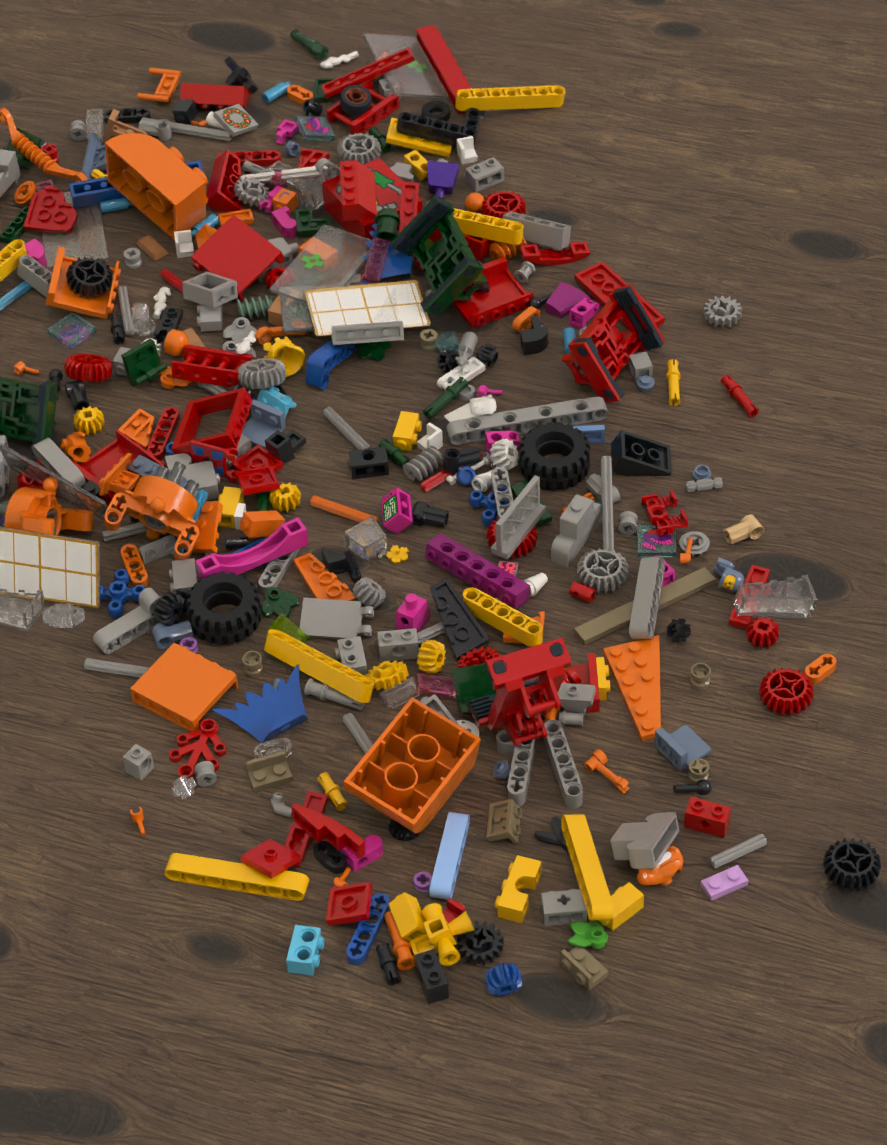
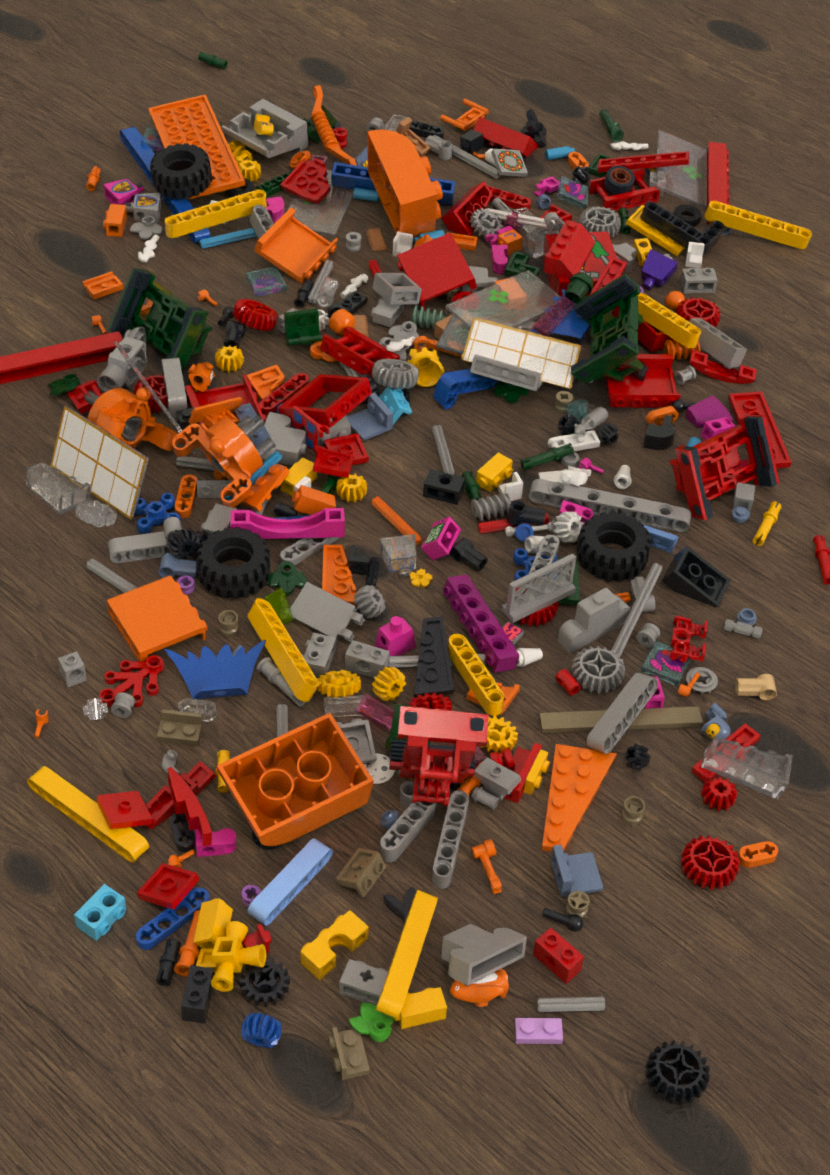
camera: 20 degrees right, 0 degrees up
(89, 277) = (304, 237): black gear -> none
(284, 445) = (378, 444): black brick -> none
(524, 390) = (623, 477): none -> white cone

